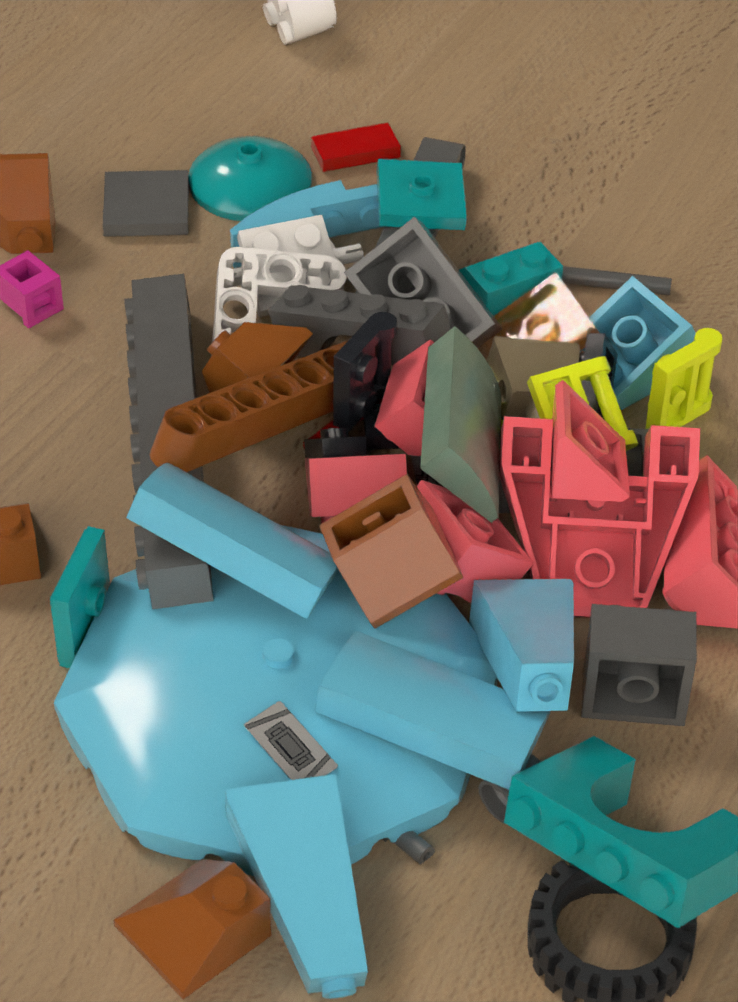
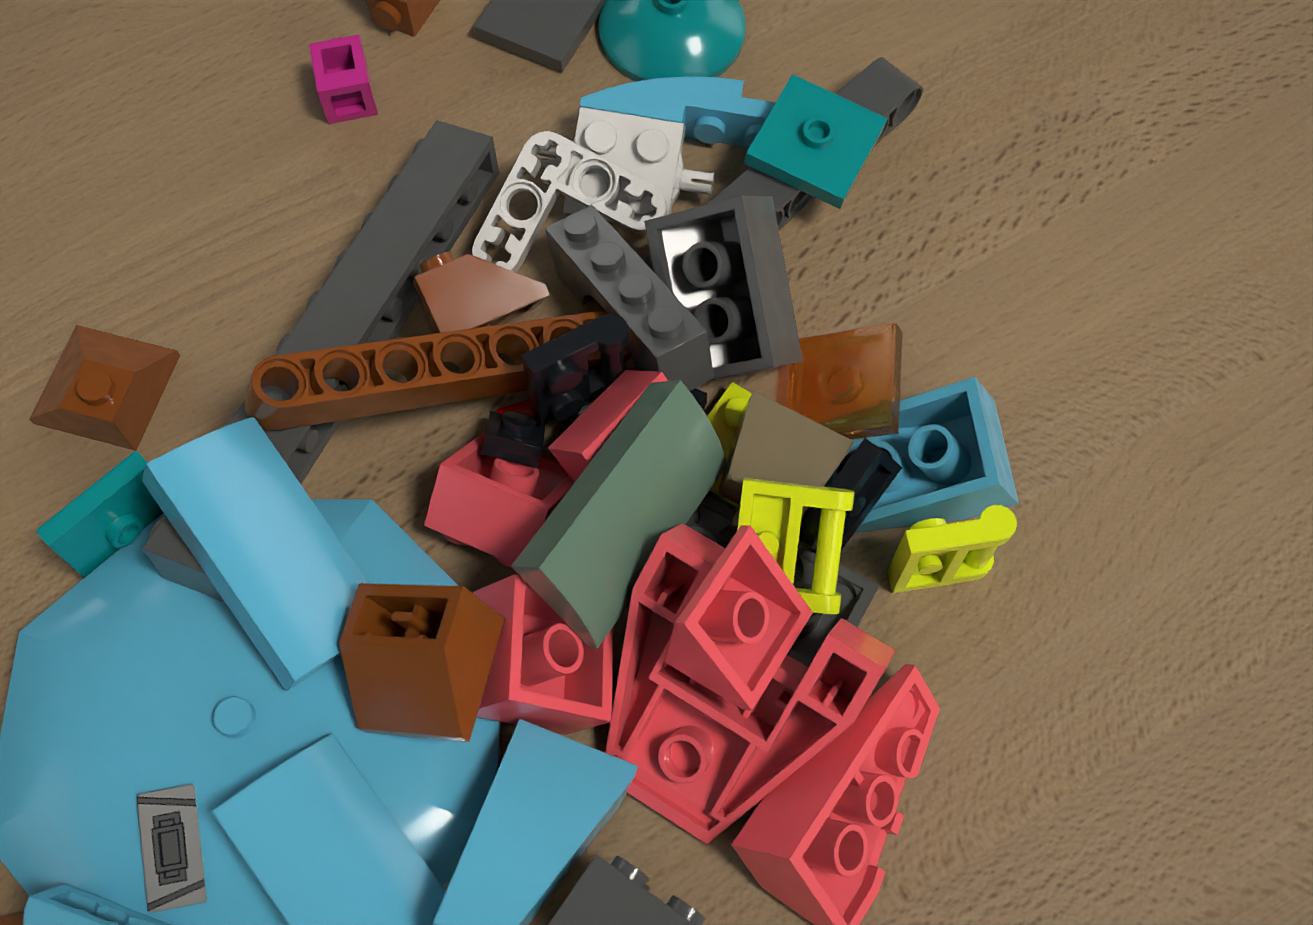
camera: 30 degrees right, 20 degrees up
(355, 147) = (809, 32): red tile -> none
(511, 275) = (849, 290): teal slope -> none
(613, 280) = (975, 340): dark grey bar -> none

